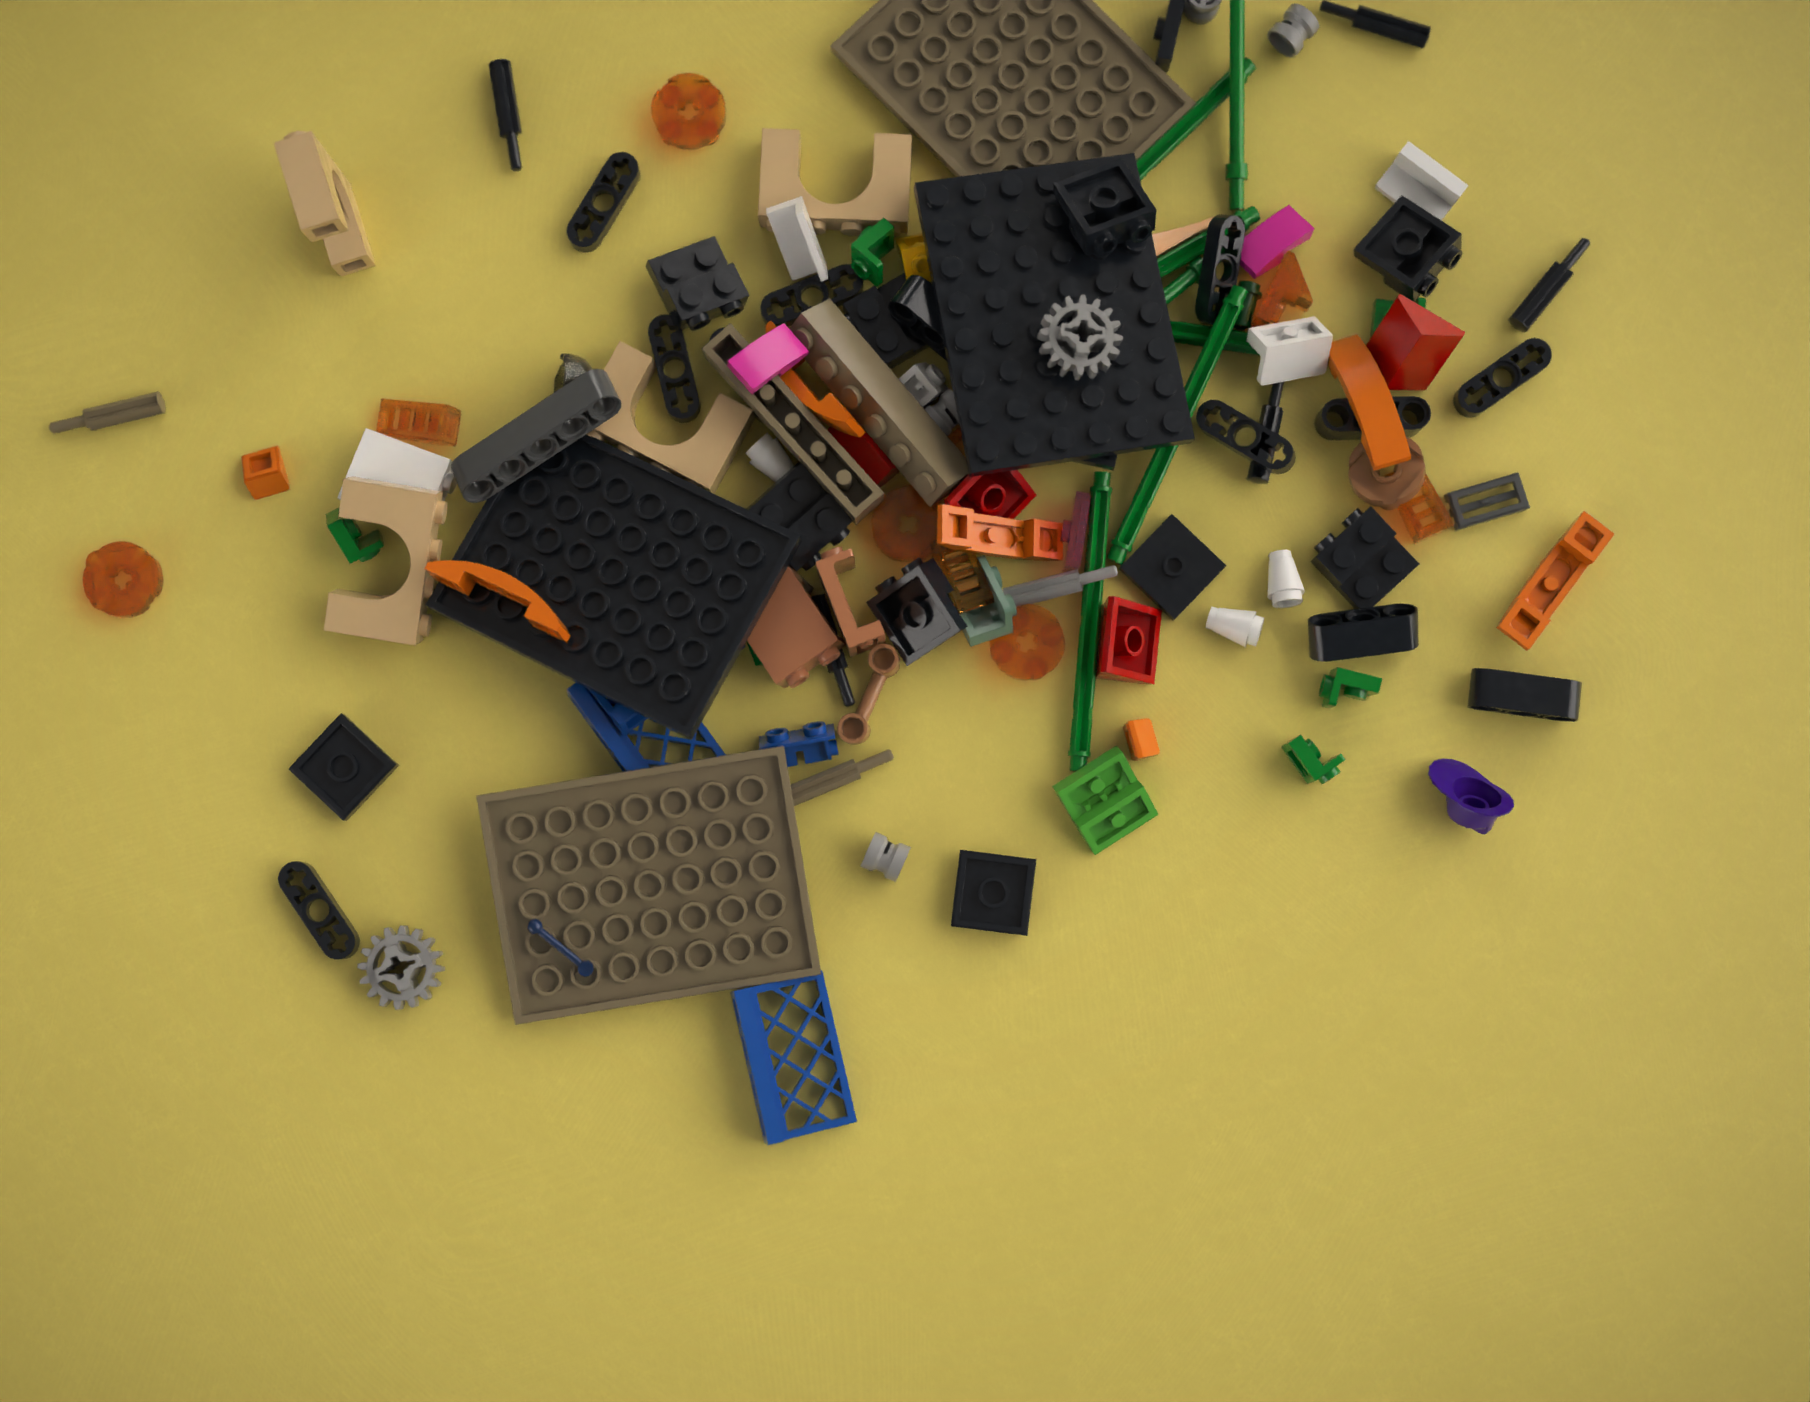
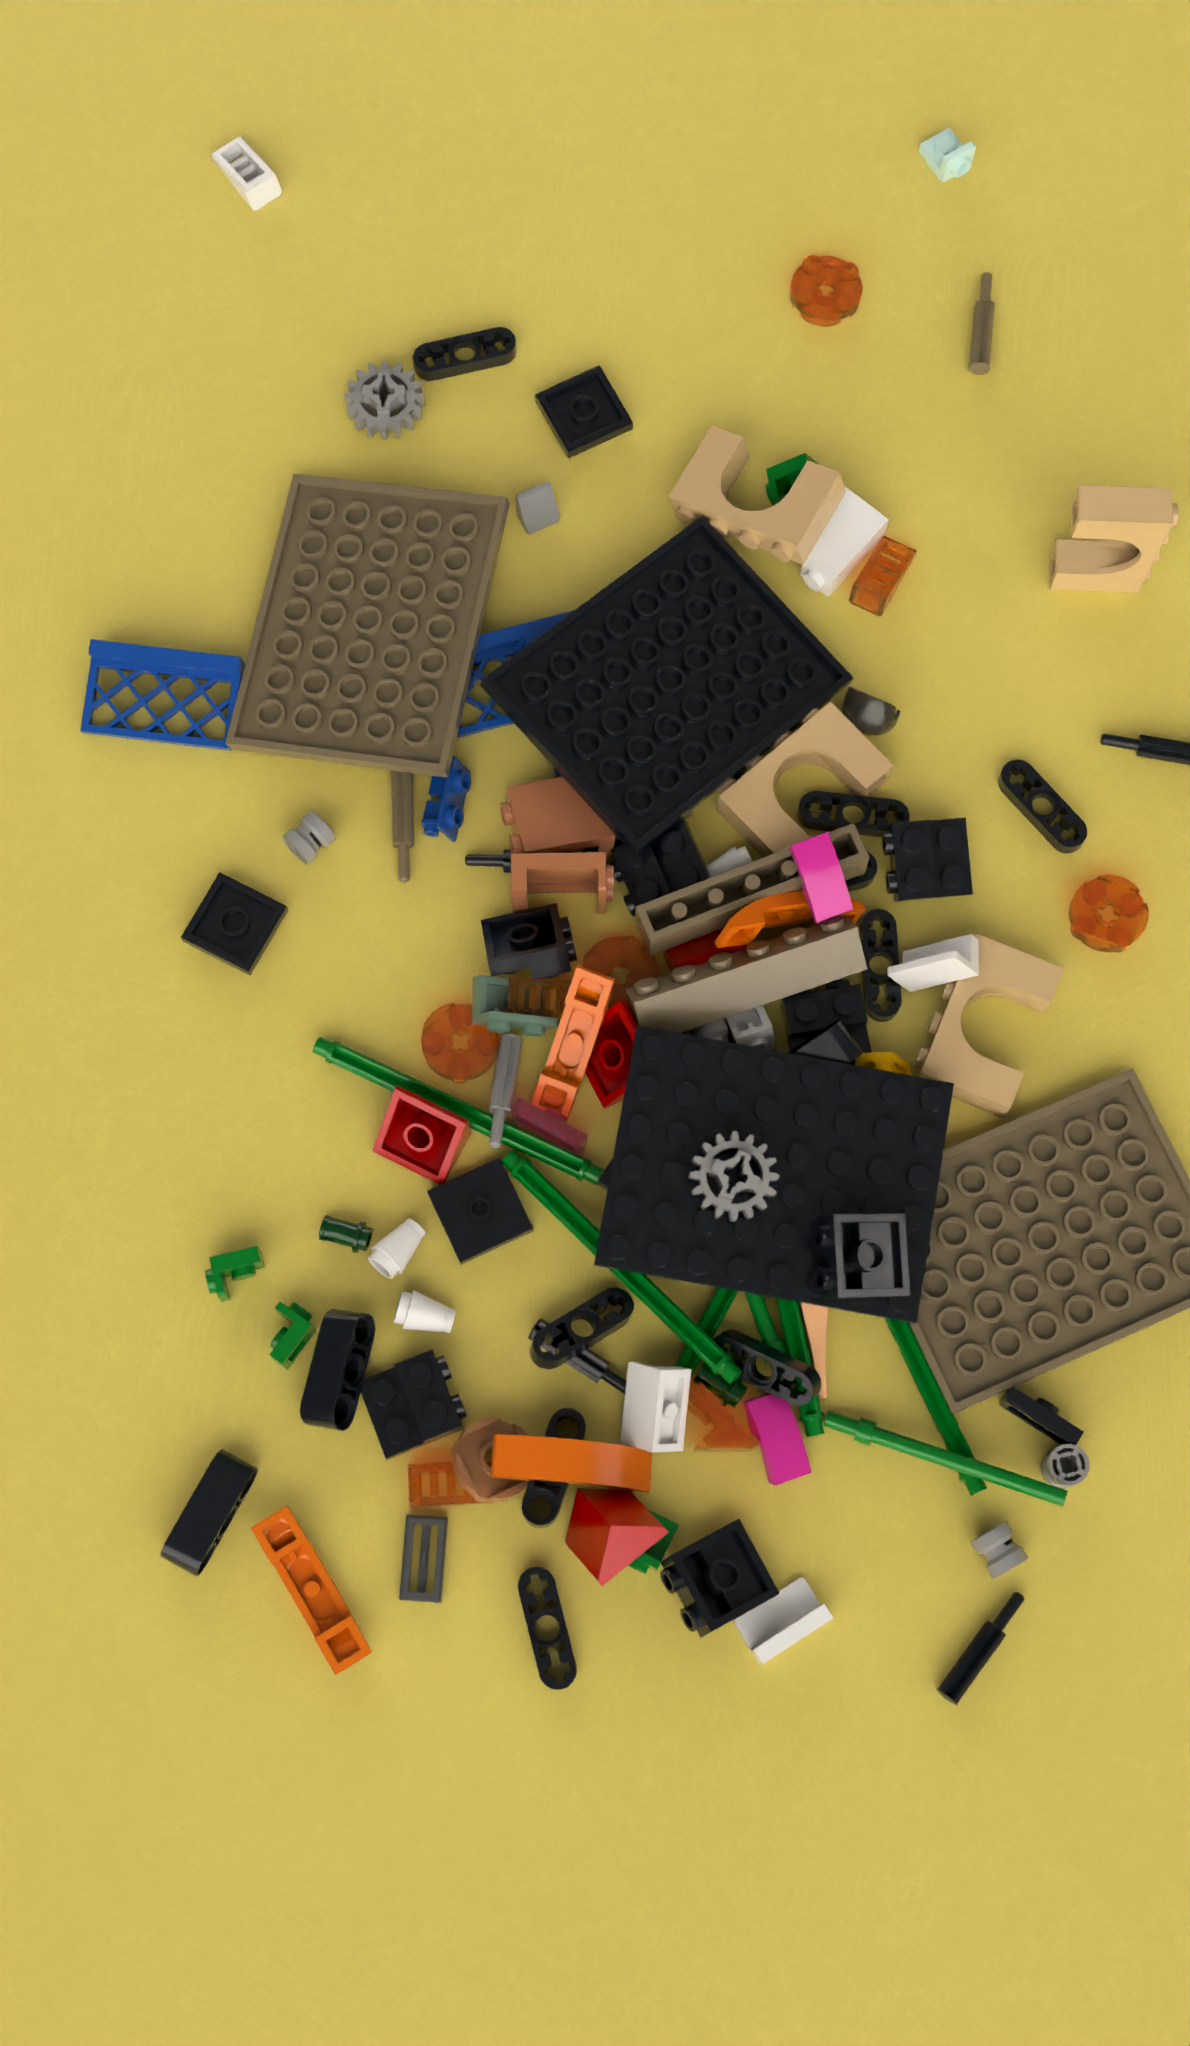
camera: 110 degrees right, 10 degrees down
(197, 1195) = (248, 174): none -> white slope
(265, 473) = (882, 433): orange slope -> none
(464, 575) = (653, 598): orange slope -> none
(466, 772) = (537, 508): none -> light grey slope
(536, 435) = (825, 657): dark grey beam -> none
(585, 967) = (318, 543): dark blue hinge -> none
(869, 248) = (906, 1027): green bracket -> none
(885, 662) = (440, 856): medium nougat bar -> none
(1105, 800) = (278, 1059): bright green slope -> none
(1141, 739) = (322, 1114): orange slope -> none
(1239, 675) = (346, 1233): none -> dark green pin
(1470, 796) = (135, 1411): dark purple piece -> none
(1547, 289) = (625, 1717): black axle -> none

